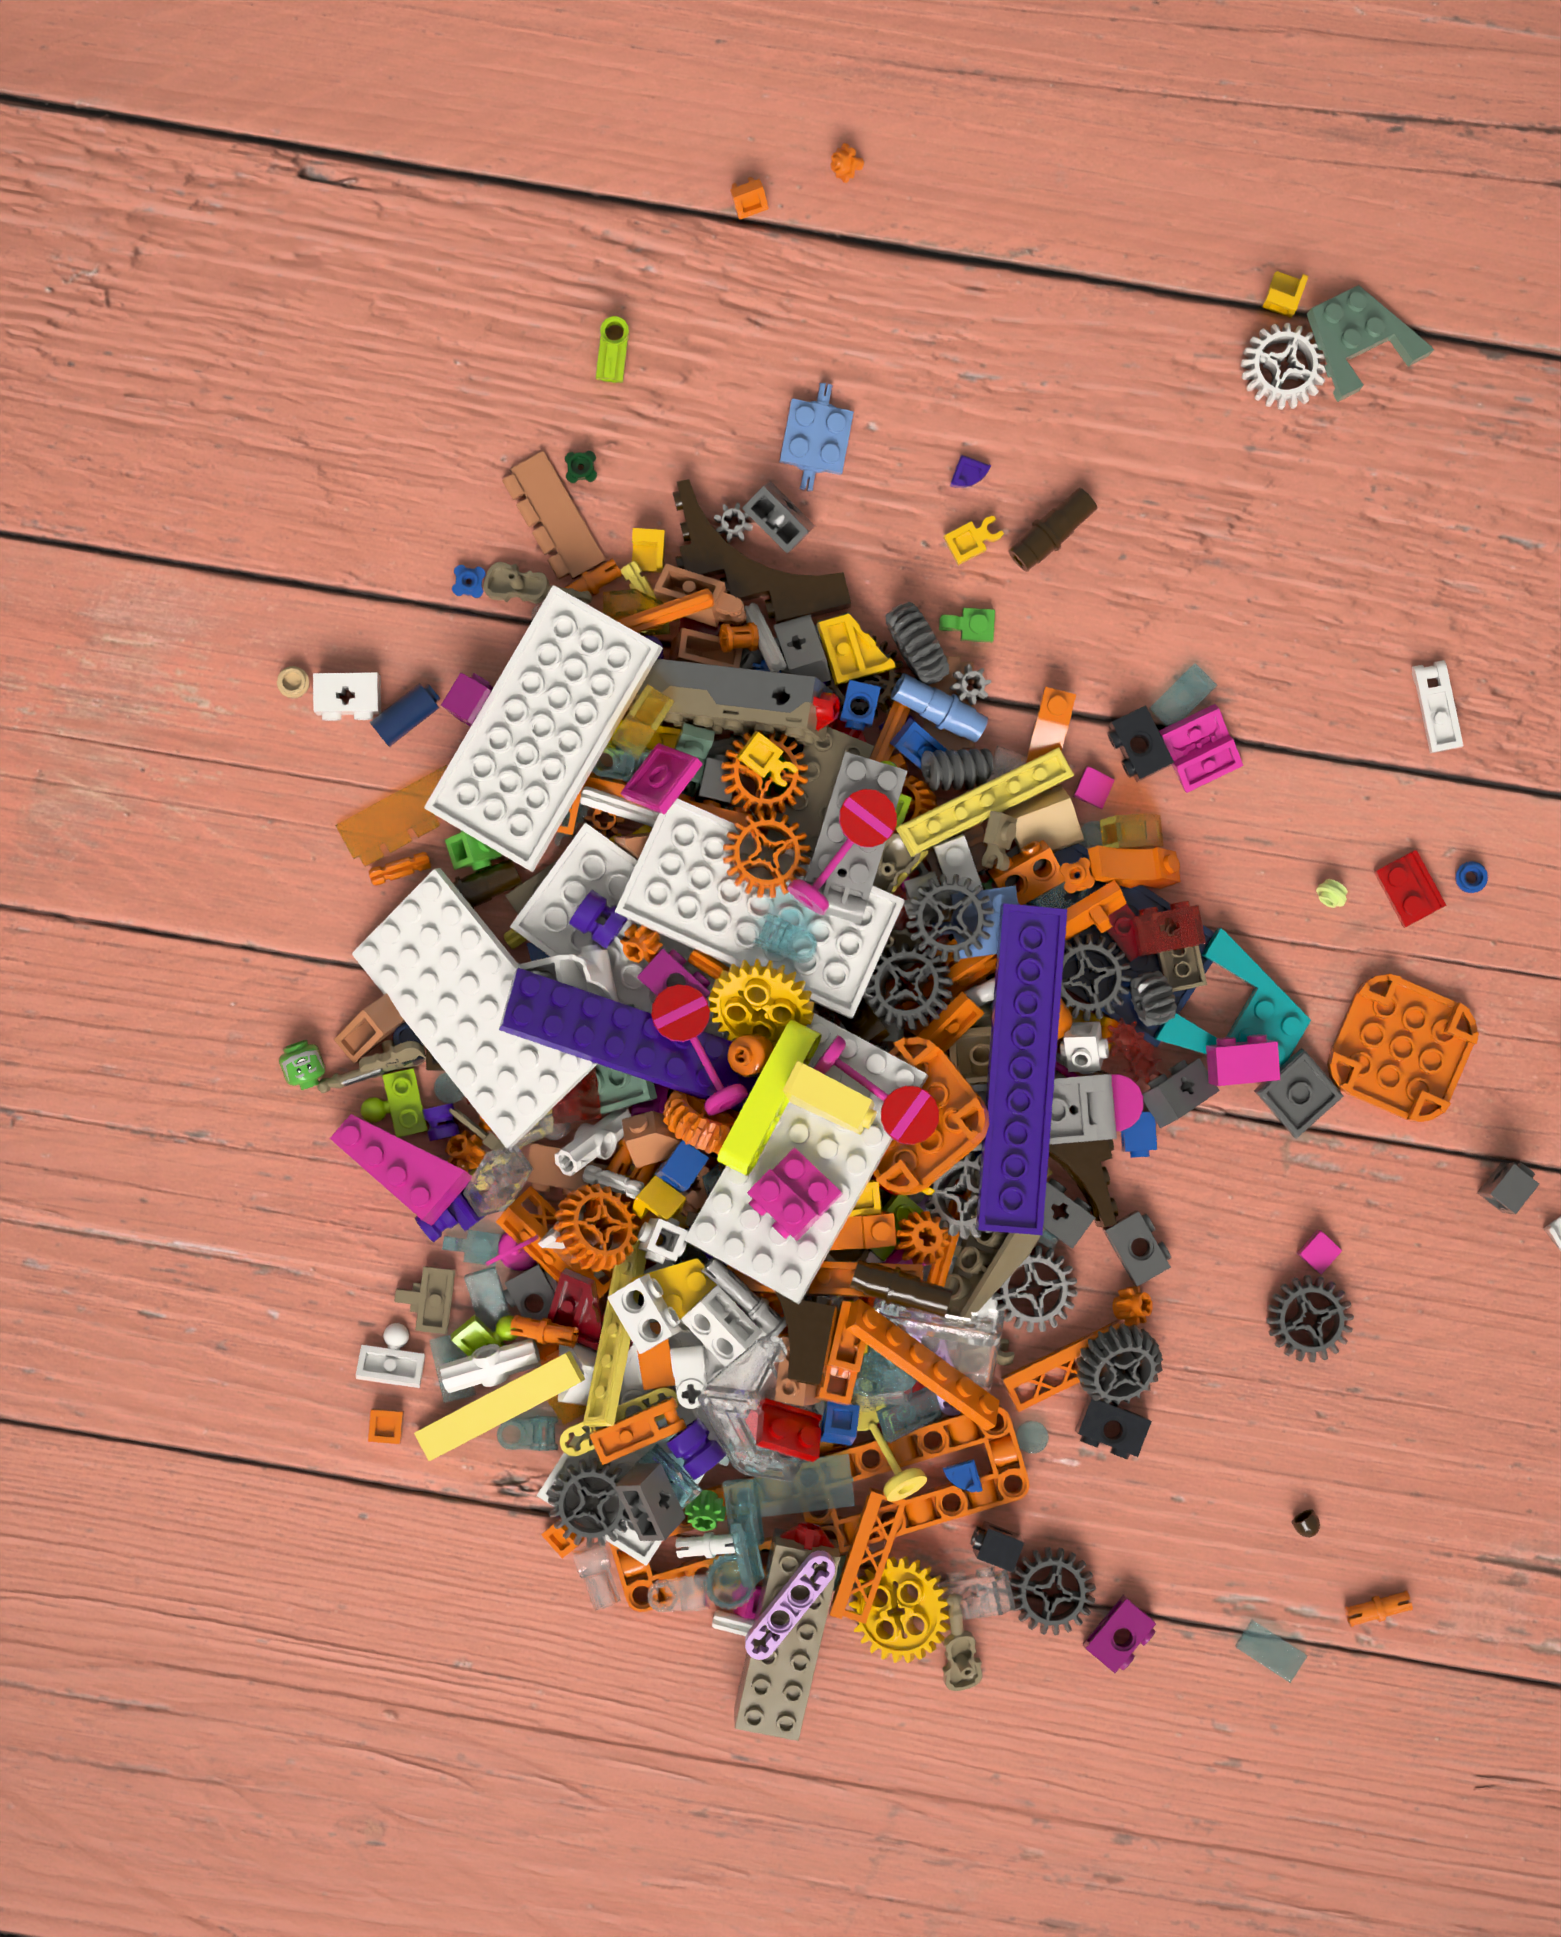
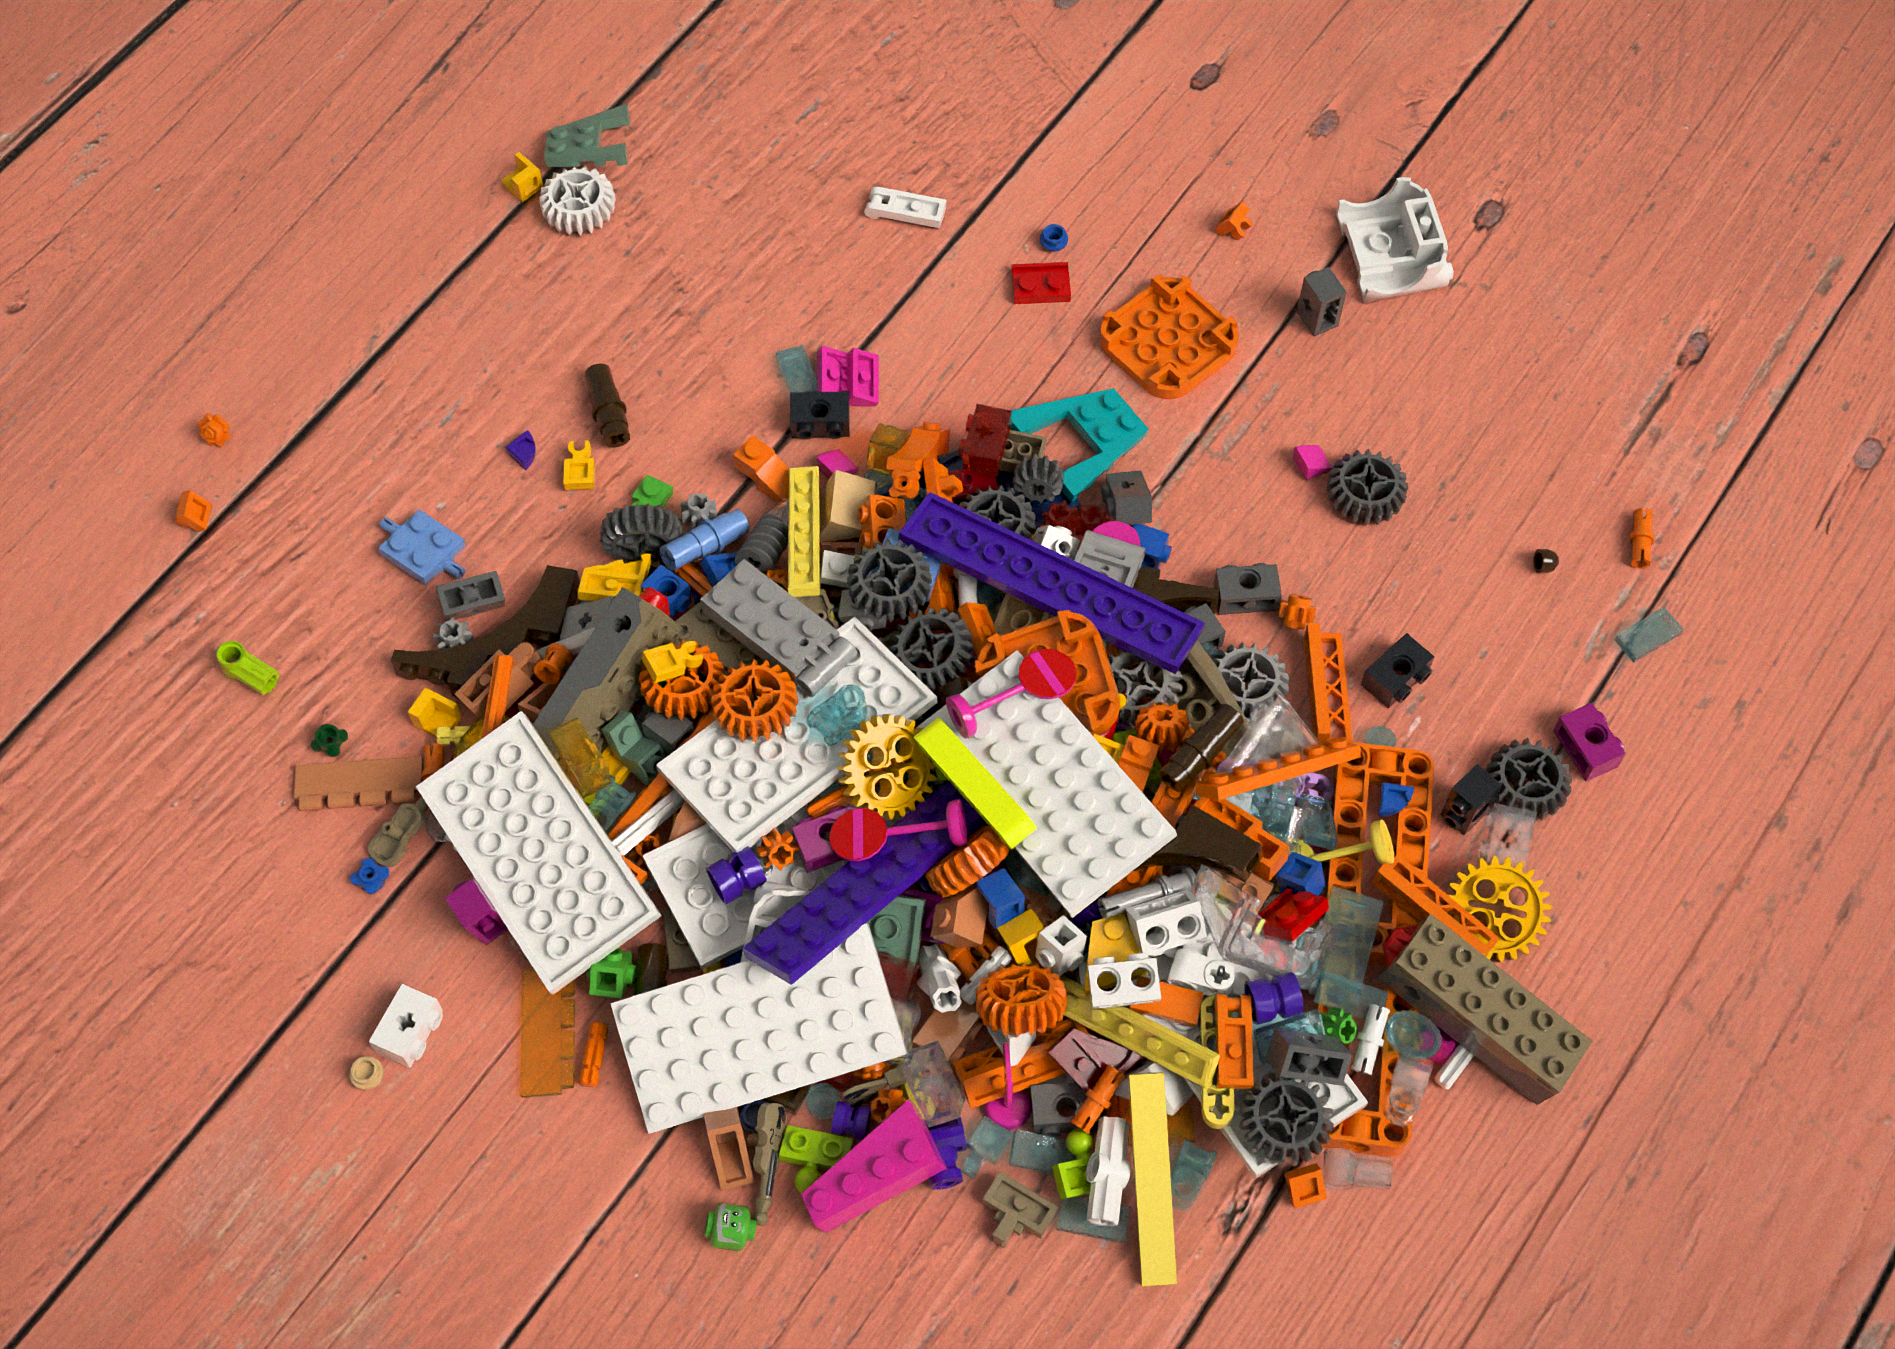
camera: 60 degrees left, 25 degrees down
(385, 1426) = (1123, 1309): orange plate -> none
(391, 1364) = (1063, 1276): white plate -> none
(406, 713) = (455, 982): dark blue brick -> none
(661, 778) = (639, 766): dark pink plate -> none
(747, 1550) = (1390, 1001): clear light blue tile -> none
(749, 1055) = (917, 792): orange head -> none
(787, 1603) = (1464, 971): lavender beam -> none
(793, 1195) = (1074, 793): dark pink plate -> none
(829, 1098) = (1000, 726): light yellow slope -> none
(867, 821) = (772, 600): piece -> none
(962, 1667) = (1570, 879): dark tan piece -> none
(998, 836) = (837, 526): dark tan plate -> none
(1119, 1364) = (1345, 636): dark grey gear -> none
(1243, 1062) = (1125, 437): dark pink brick -> none
(1300, 1094) = (1171, 420): dark grey plate -> none
(1332, 893) = (1016, 332): yellowish green plate -> none

